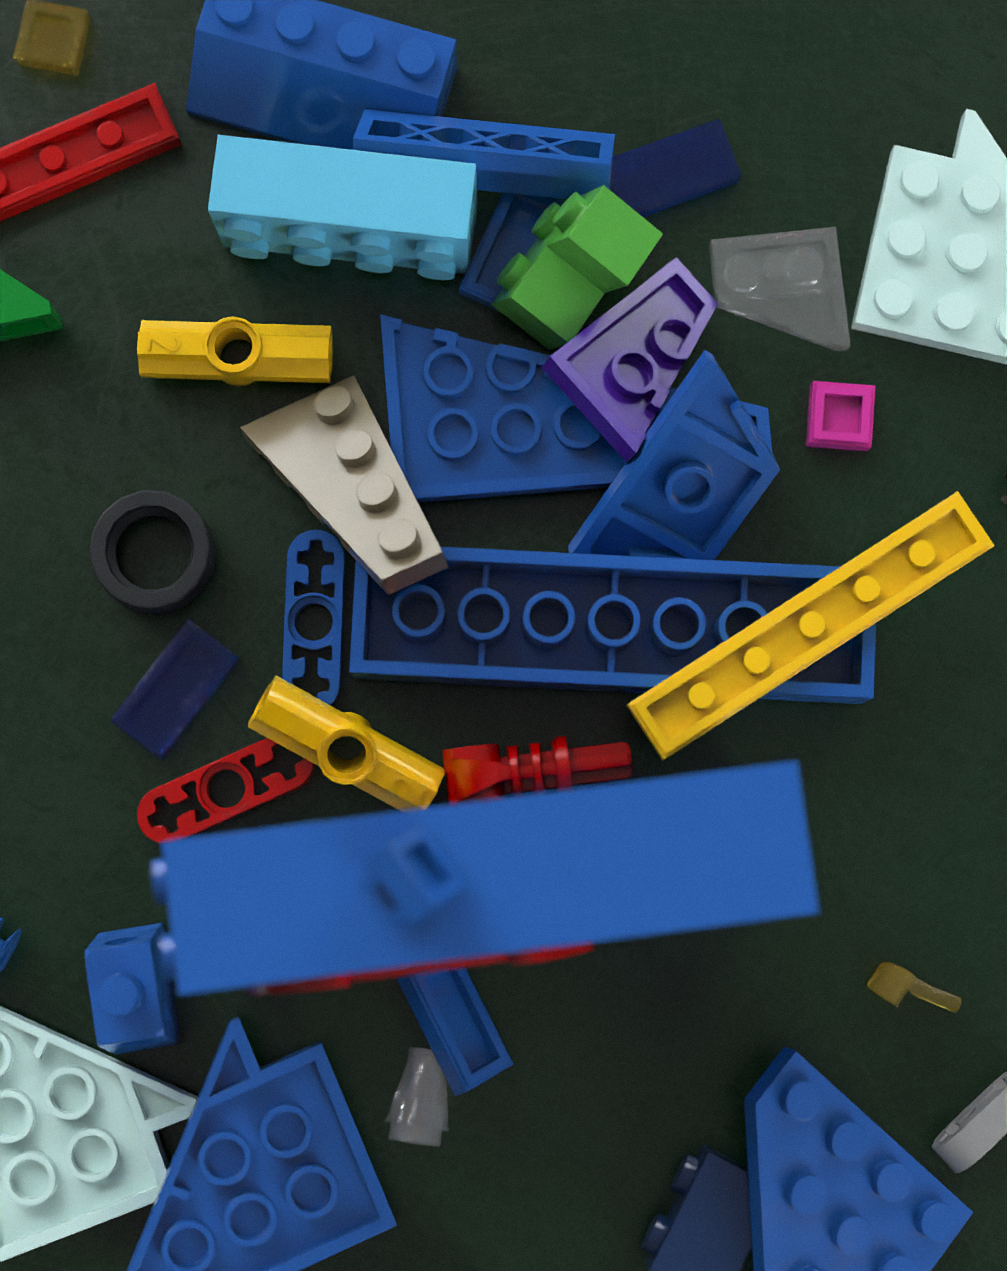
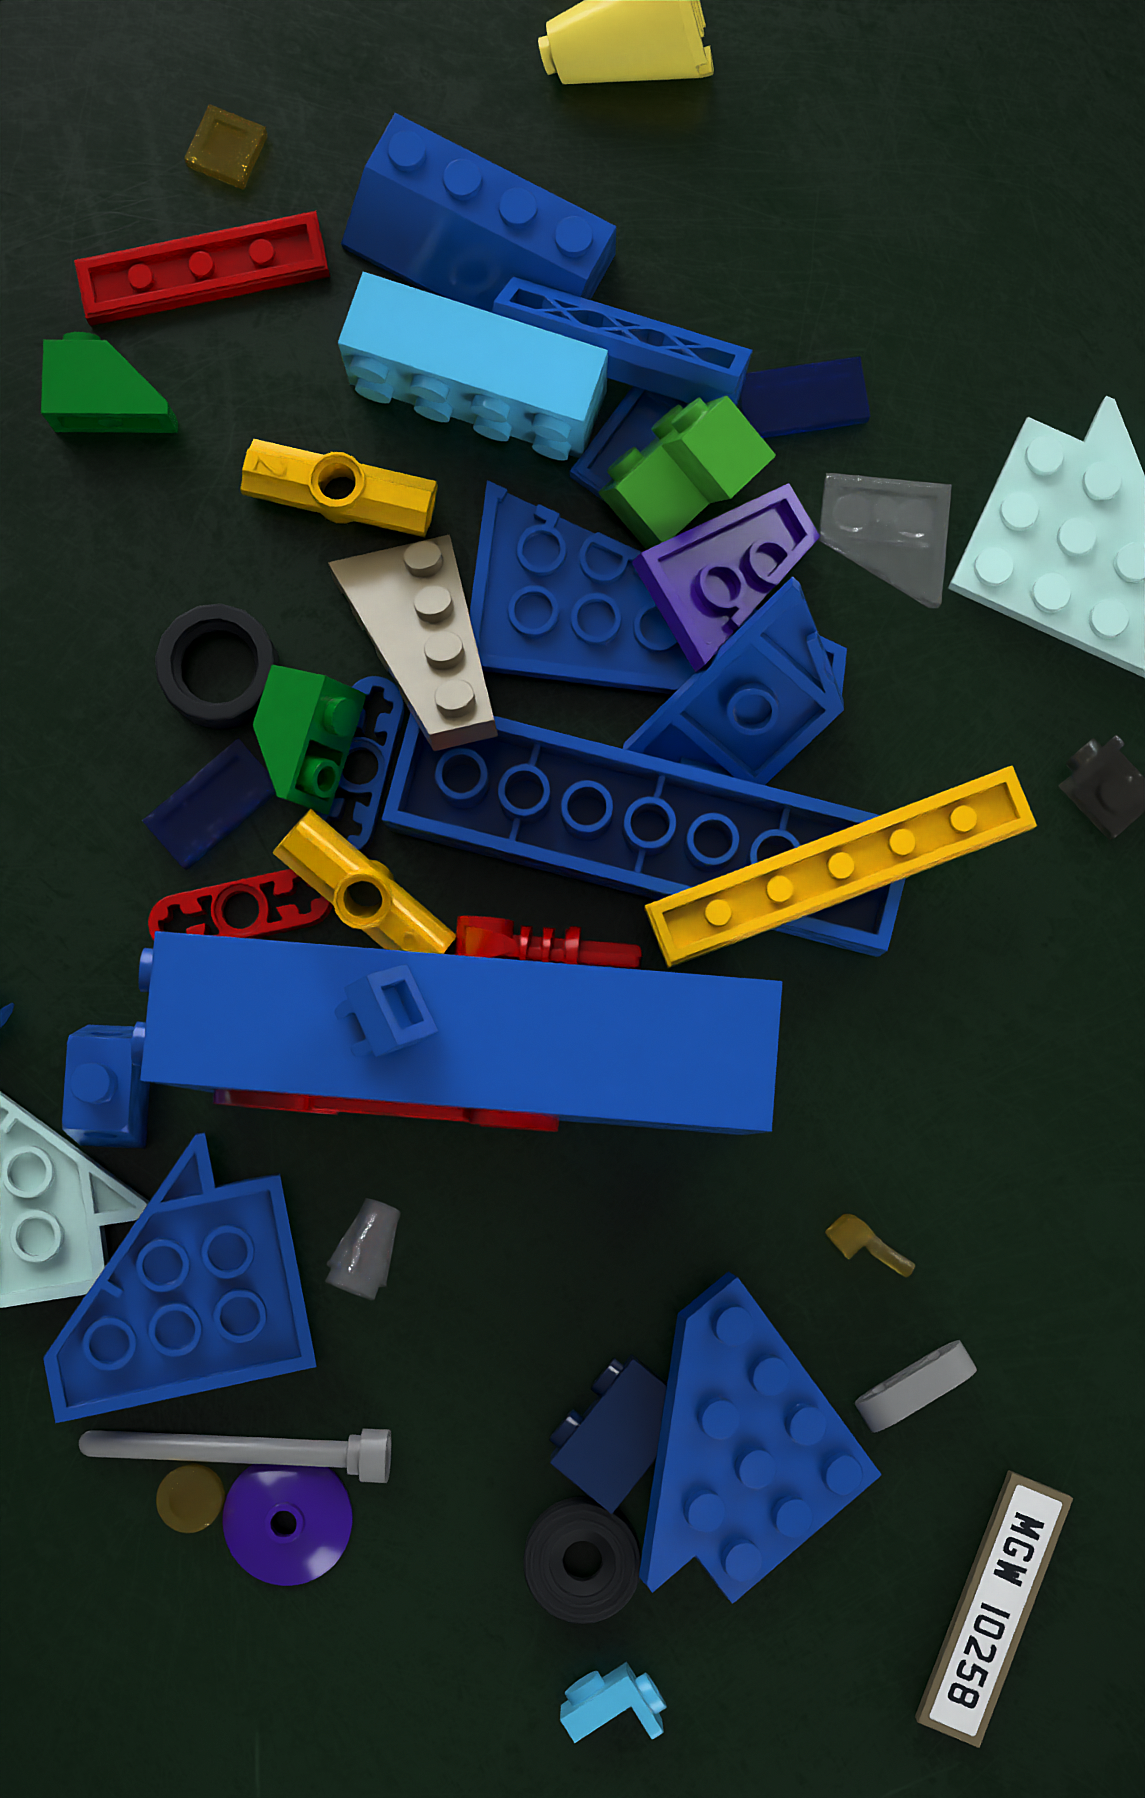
camera: 15 degrees right, 0 degrees up
(255, 602) = (306, 734): none -> green slope
(456, 1026) = (414, 1183): blue tile -> none
(840, 416) = (918, 671): dark pink tile -> none

